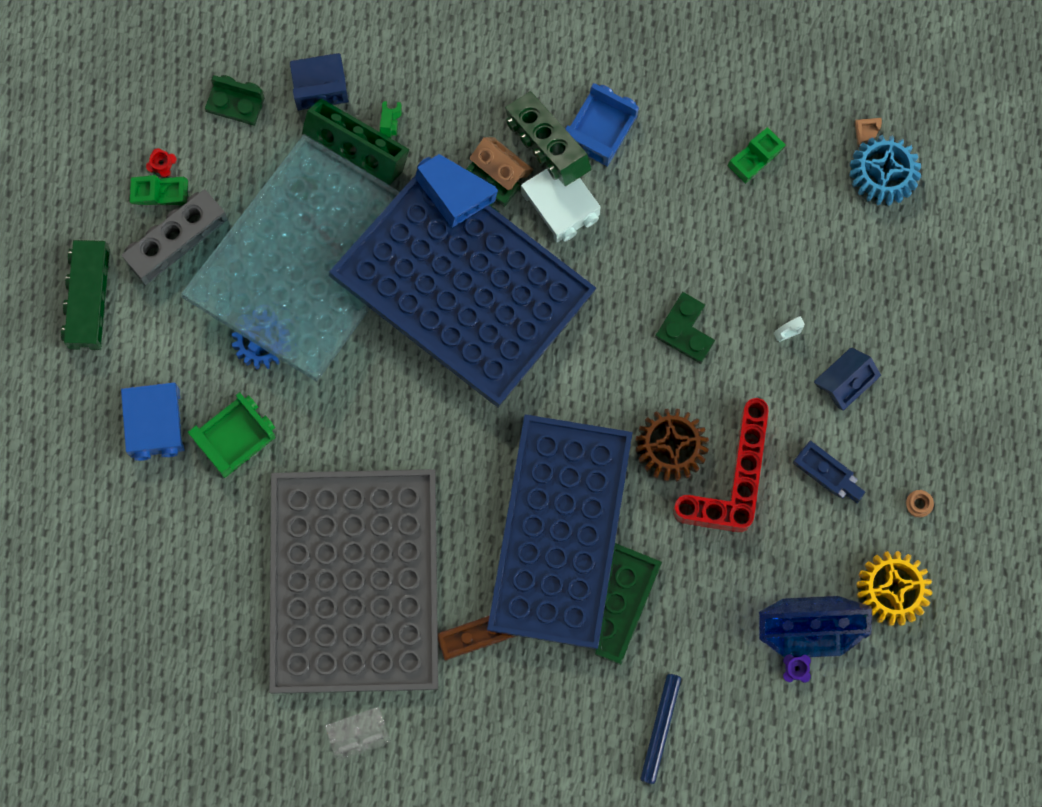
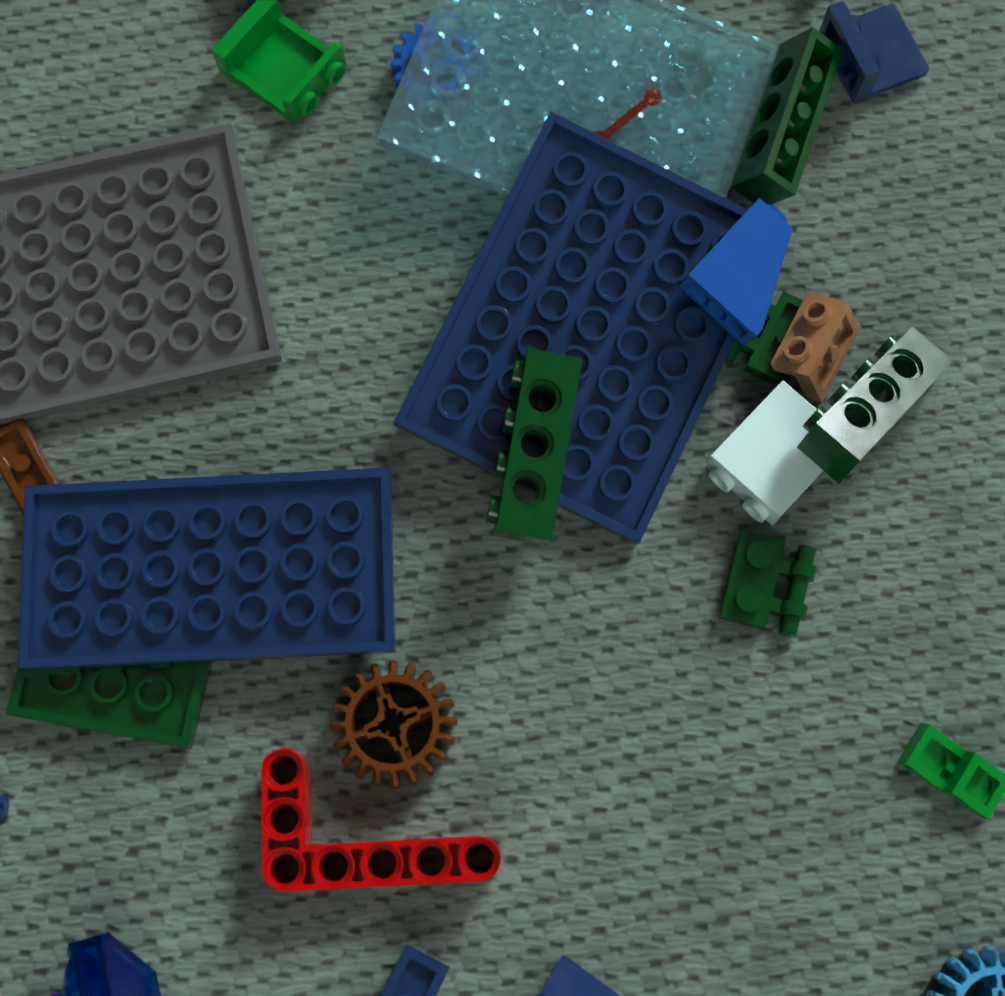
camera: 80 degrees right, 0 degrees up
(324, 214) = (651, 98): none -> clear red hinge
(388, 121) = (831, 159): green plate -> none
(525, 314) = (558, 379): none -> dark green brick
(603, 123) = (931, 493): blue panel -> none
(630, 232) = (753, 581): none -> dark green plate
(679, 331) = (604, 696): dark green plate -> none
(796, 327) = (645, 891): light aqua tile -> none

